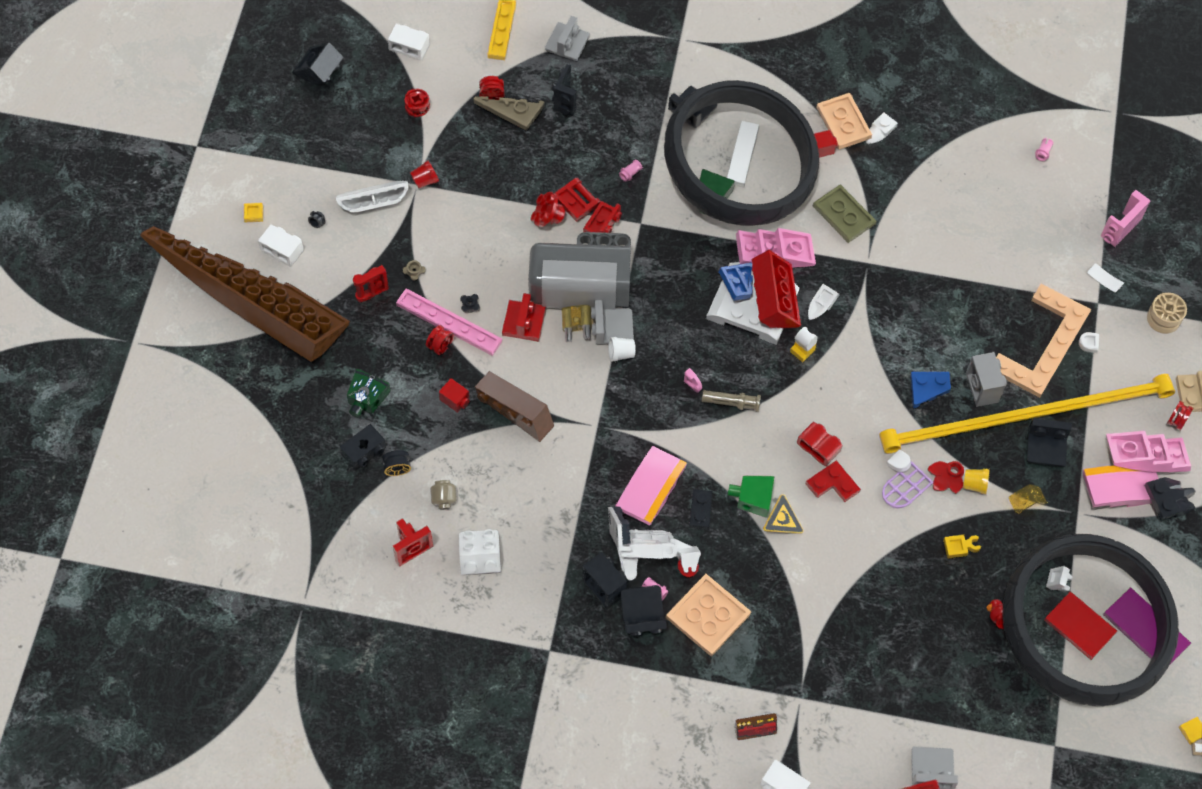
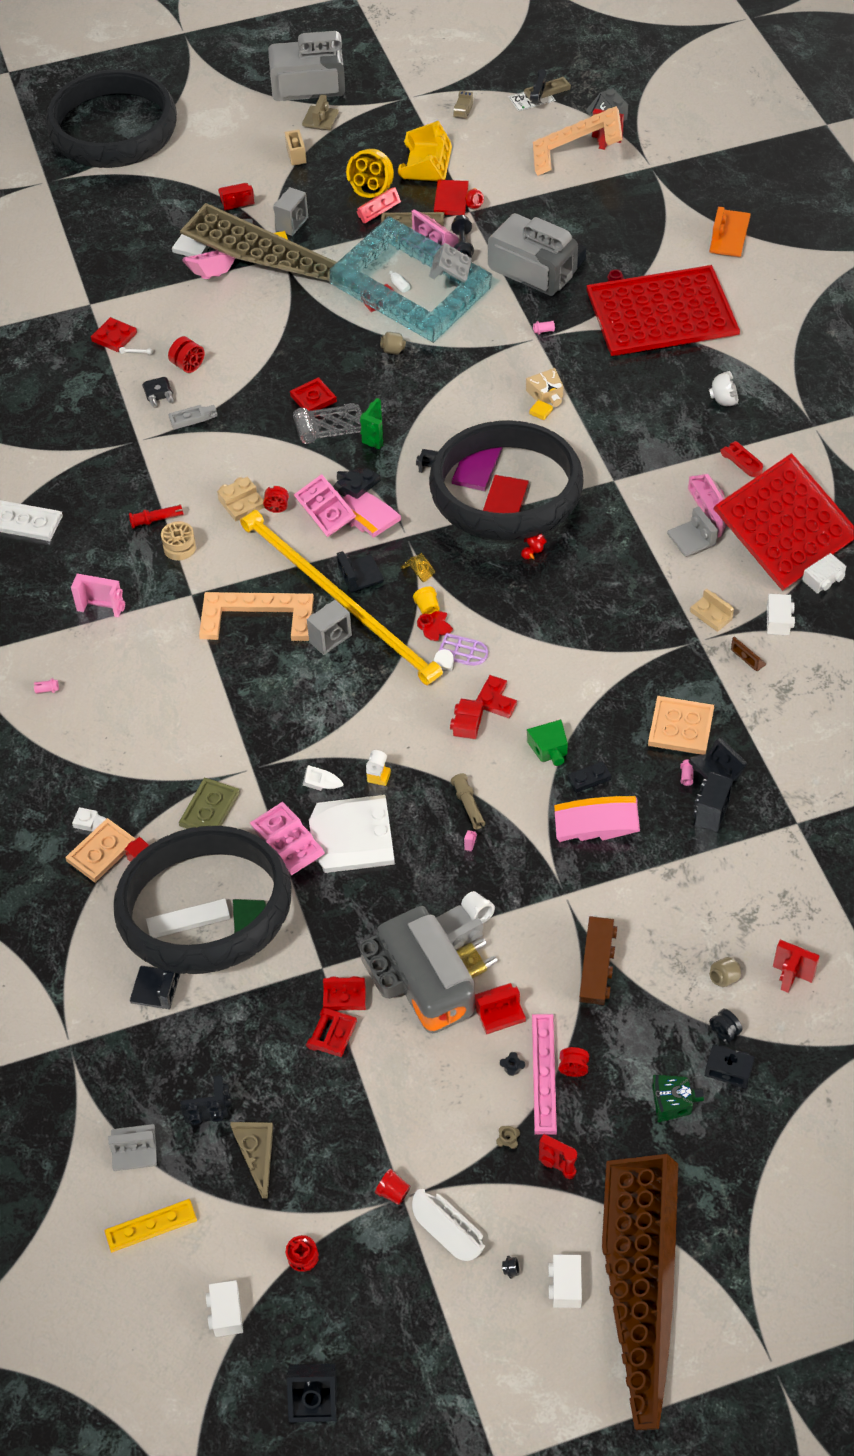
camera: 115 degrees left, 10 degrees down
(253, 212) = (542, 1342): yellow tile -> none
(454, 395) = (621, 1019): red brick -> none
(479, 552) = (753, 915): white bracket -> none
(491, 87) = (242, 1181): red wheel -> none
(548, 210) = (366, 1046): red plate -> none
(630, 170) = (266, 1002): bright pink pin -> none
(649, 544) = (675, 796): white container -> none
(738, 280) = (347, 841): blue wing -> none
(775, 291) = (342, 807): red slope -> none
(783, 518) = (557, 711): piece -> none
(826, 727) = (713, 610): none -> tan bracket
(928, 386) = (356, 672): blue wing -> none
(957, 545) = (493, 592): yellow plate -> none
(1089, 342) = (237, 584): white tile -> none
(1105, 278) = (163, 597): white sticker -> none
(1172, 574) = (425, 459): none -> black bracket

